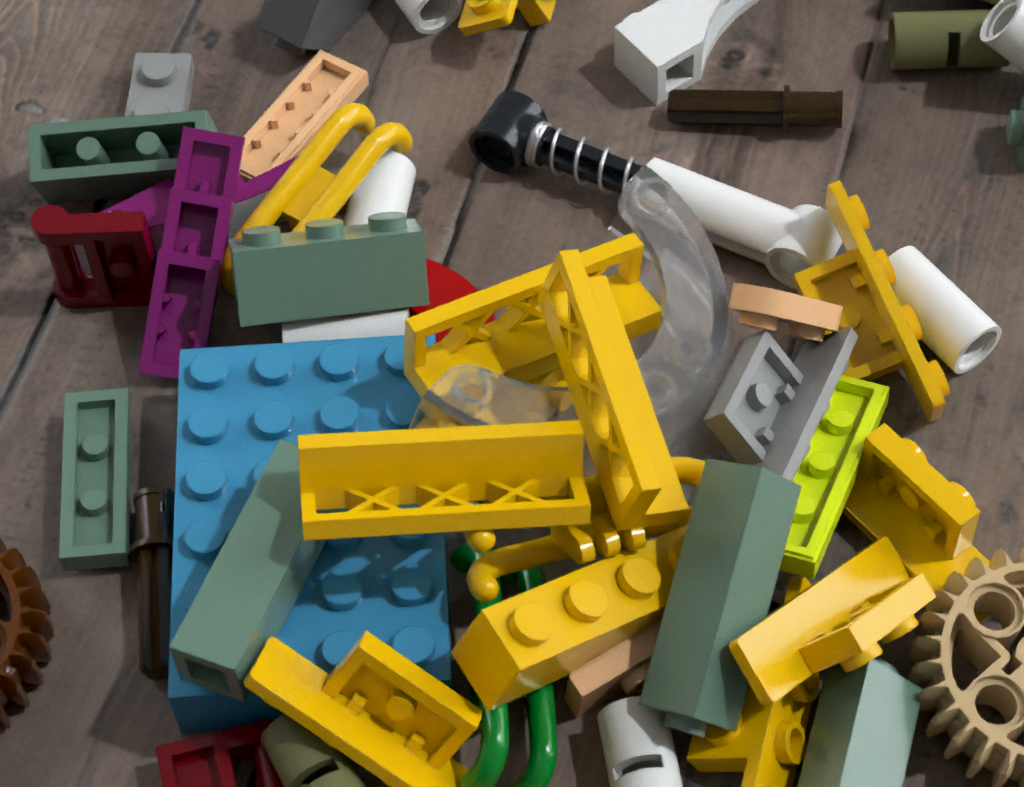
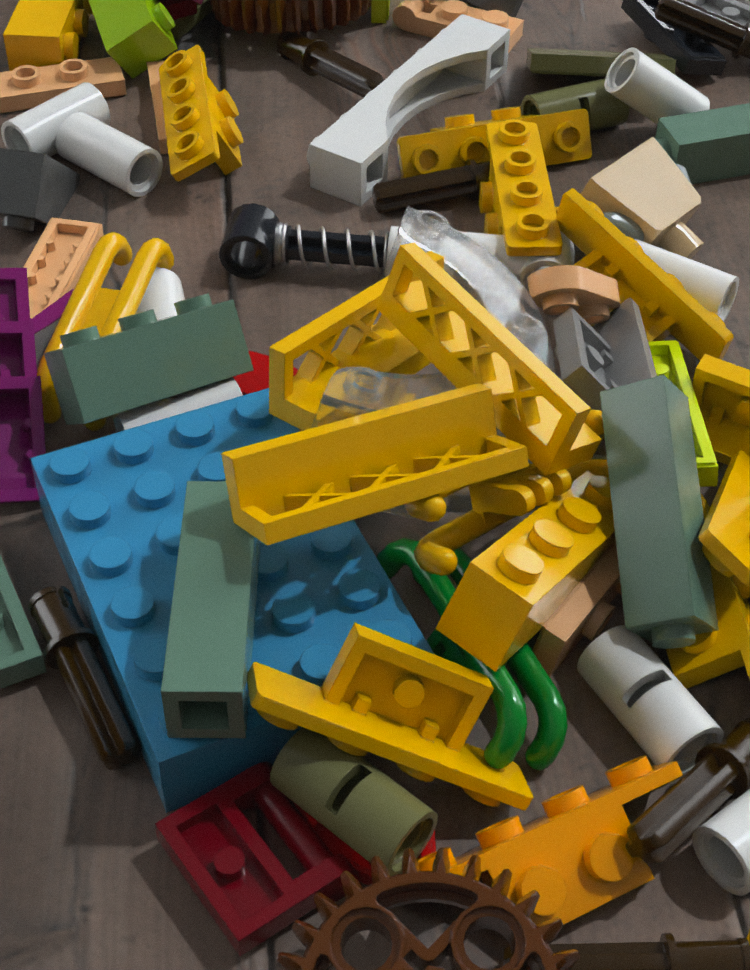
camera: 25 degrees left, 10 degrees down
(811, 148) = (519, 191): none -> yellow bracket
(833, 59) = (562, 136): none -> yellow bracket
(942, 198) = (648, 198): none -> tan torso

